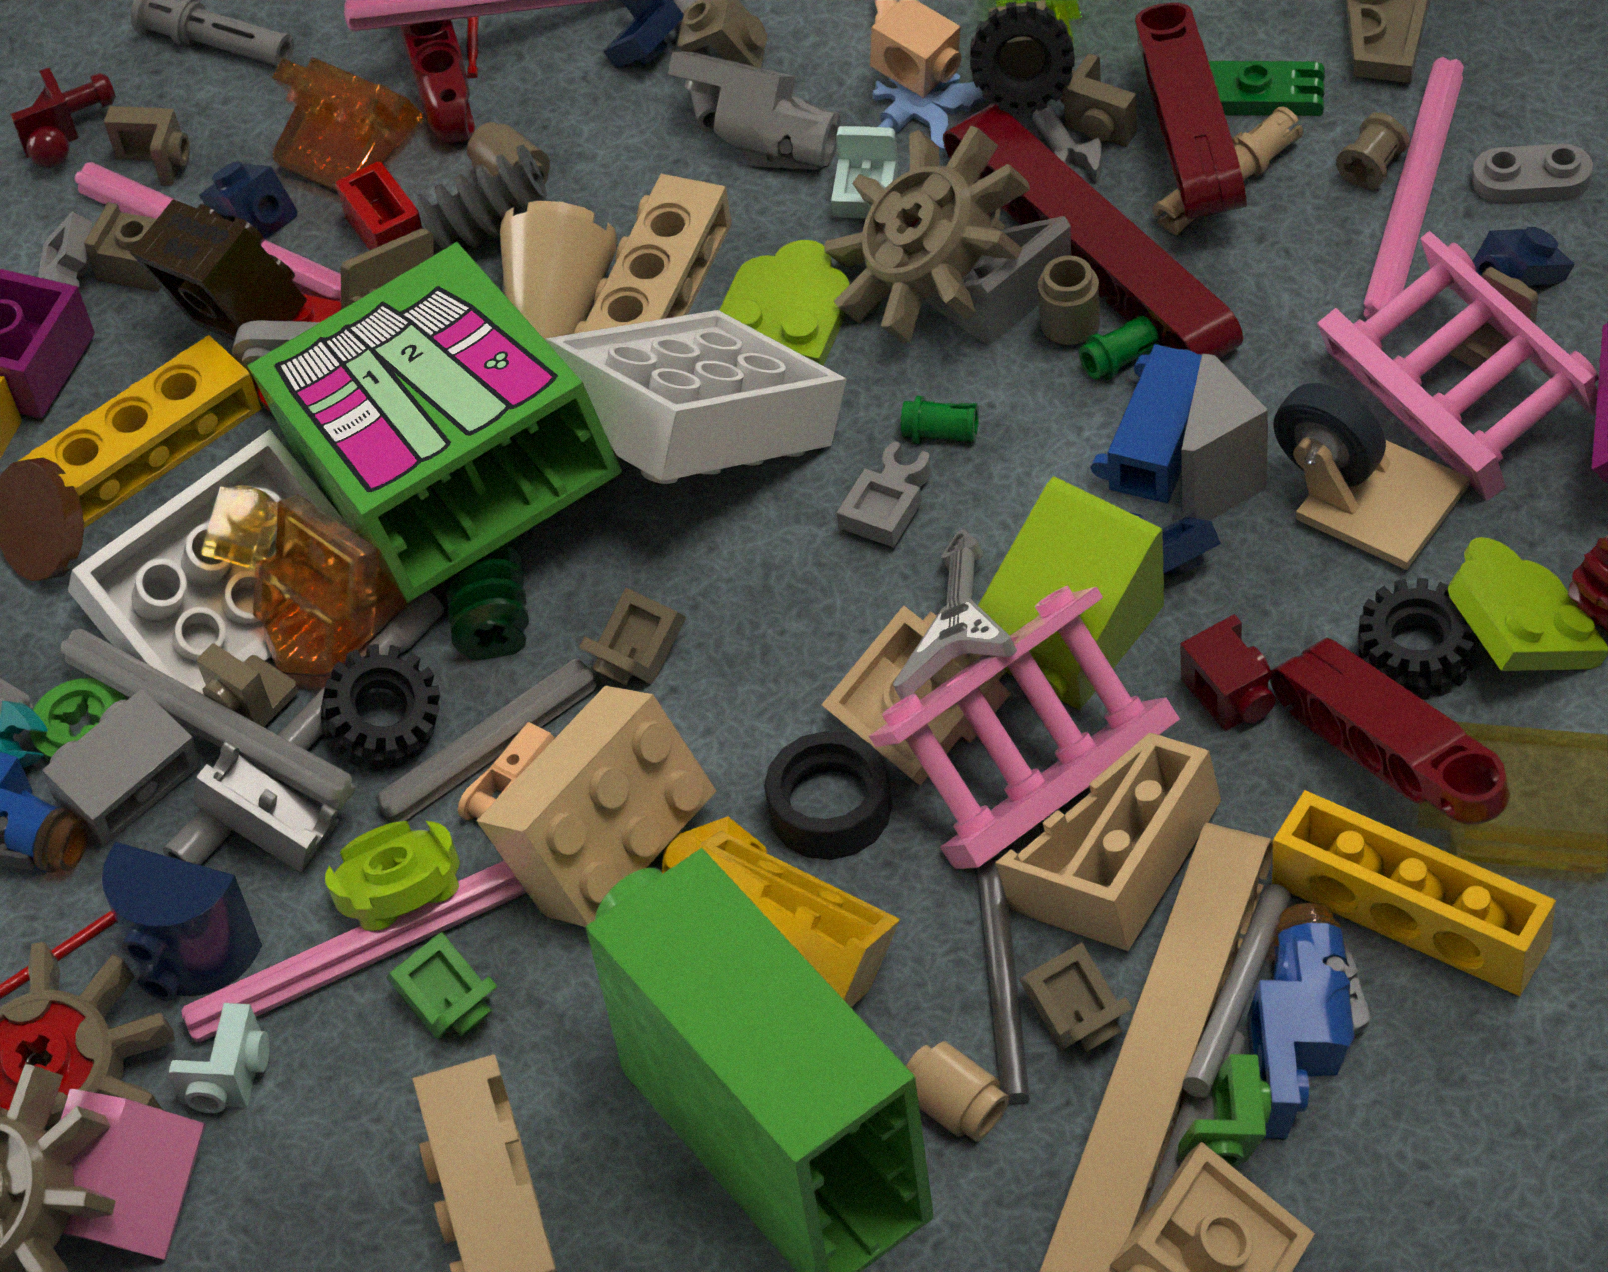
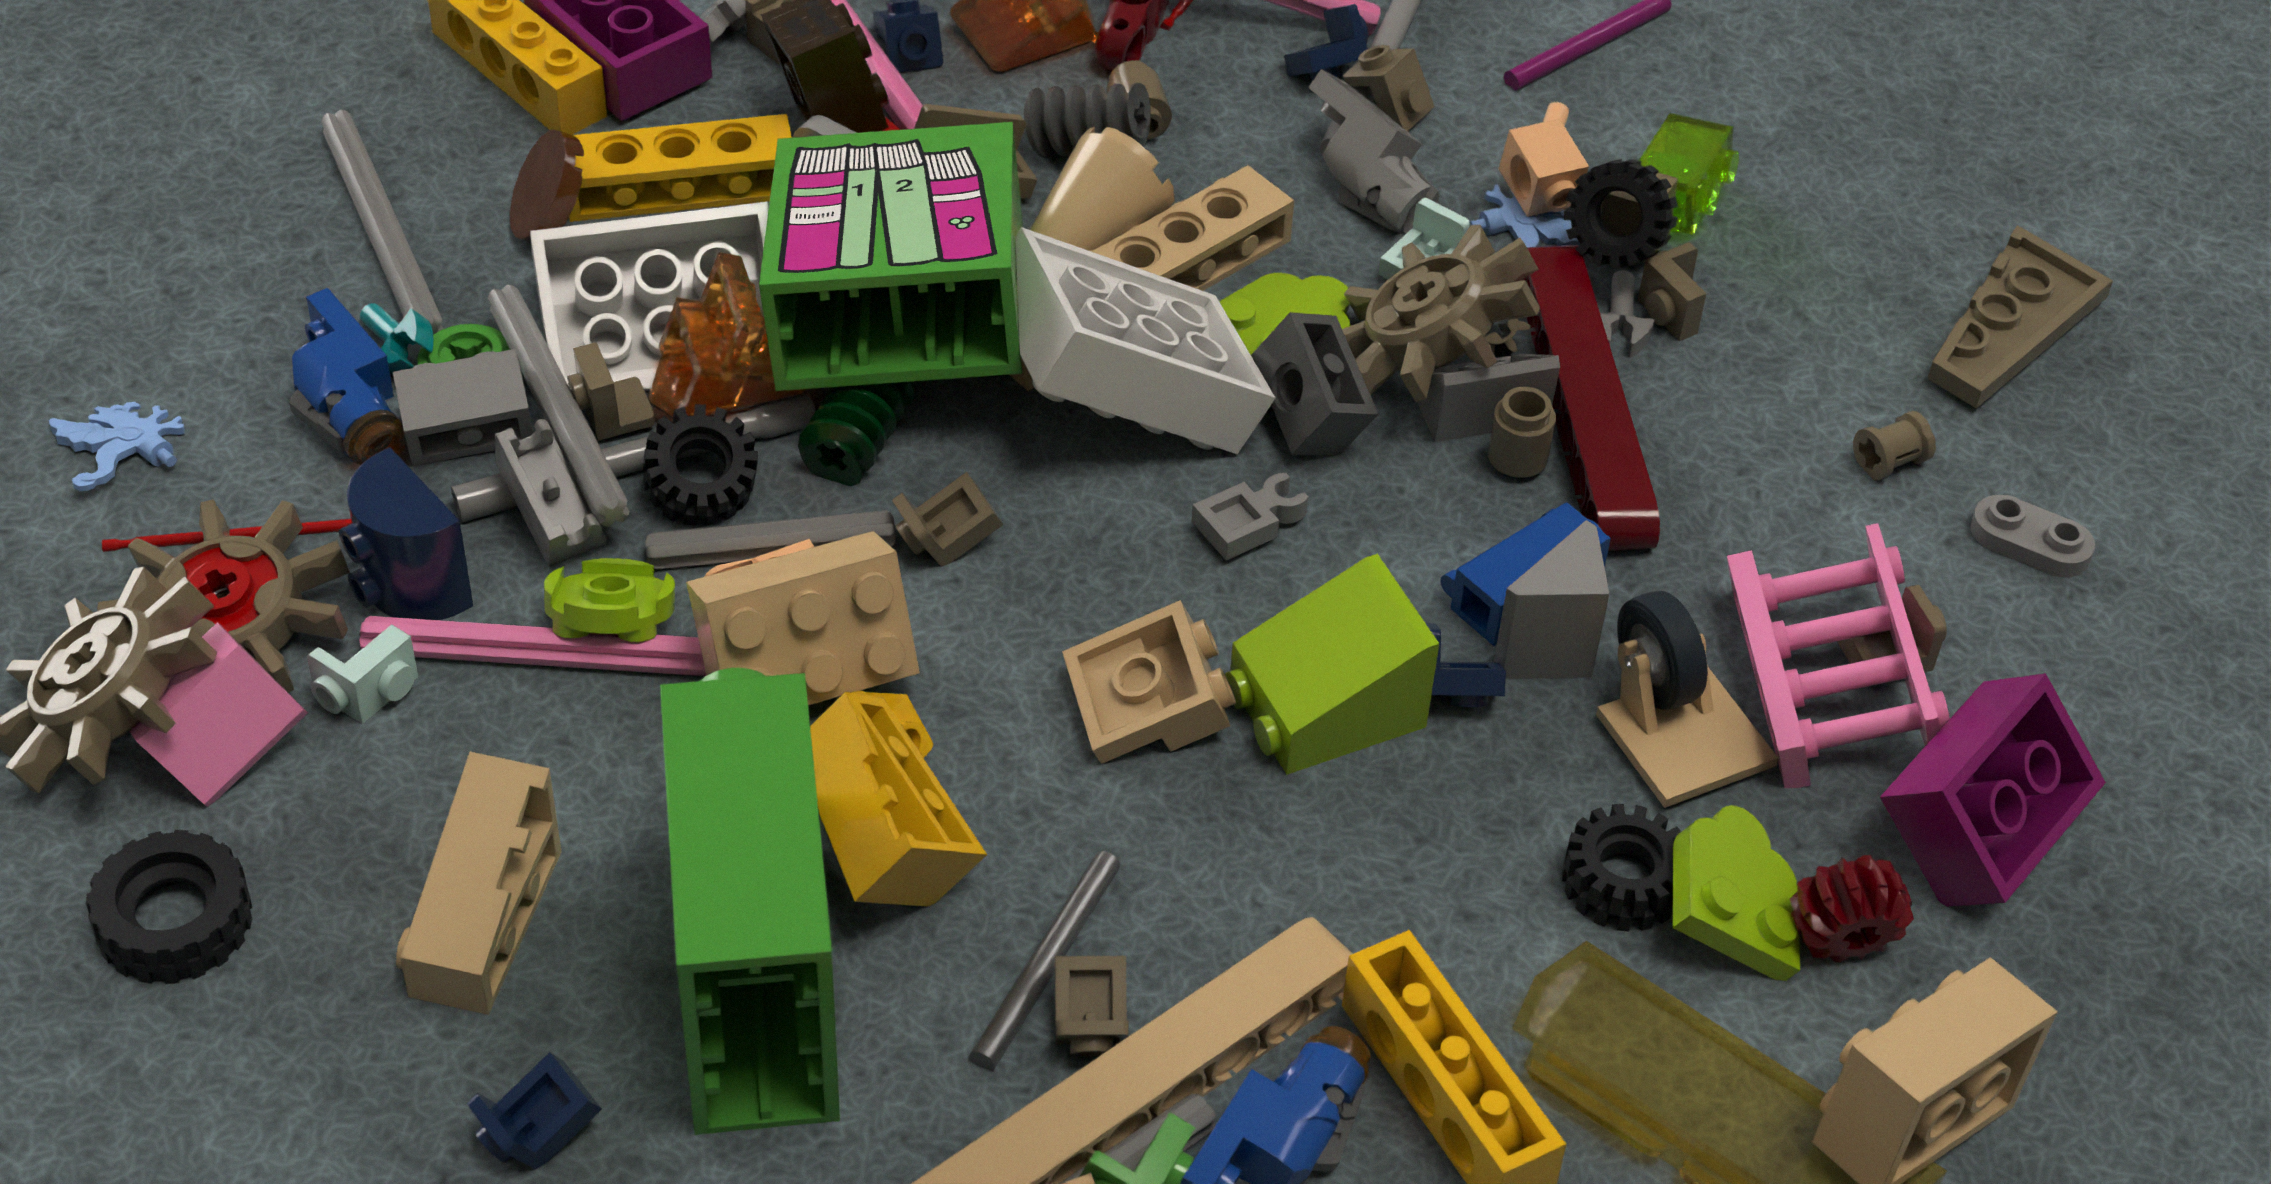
camera: 20 degrees right, 5 degrees down
(241, 526) = (682, 260): clear yellow brick -> none
(377, 206) = (1003, 80): red piece -> none
(442, 988) = (579, 710): bright green bracket -> none
(837, 835) = (1012, 765): black tyre -> none
(869, 346) = (1315, 384): none -> dark grey brick
(939, 420) = (1342, 478): green pin -> none
(957, 1091) = (930, 1023): tan brick -> none
(959, 626) = (1211, 639): light grey piece -> none
(1030, 793) = (1181, 810): bright pink fence -> none
(1107, 353) = (1539, 495): green pin -> none
(1117, 847) = (1222, 896): tan wedge -> none
(1189, 111) = (1741, 330): dark red piece -> none
(1227, 674) = (1431, 806): dark red brick -> none
(1235, 992) = (1229, 1074): light grey bar -> none
(1253, 152) = (1775, 396): tan pin -> none
(1266, 85) = (1820, 342): green hinge -> none
(1392, 733) = (1530, 928): dark red piece -> none
(1414, 185) = (1921, 486): bright pink axle -> none
(1524, 255) = (1968, 598): dark blue bracket -> none

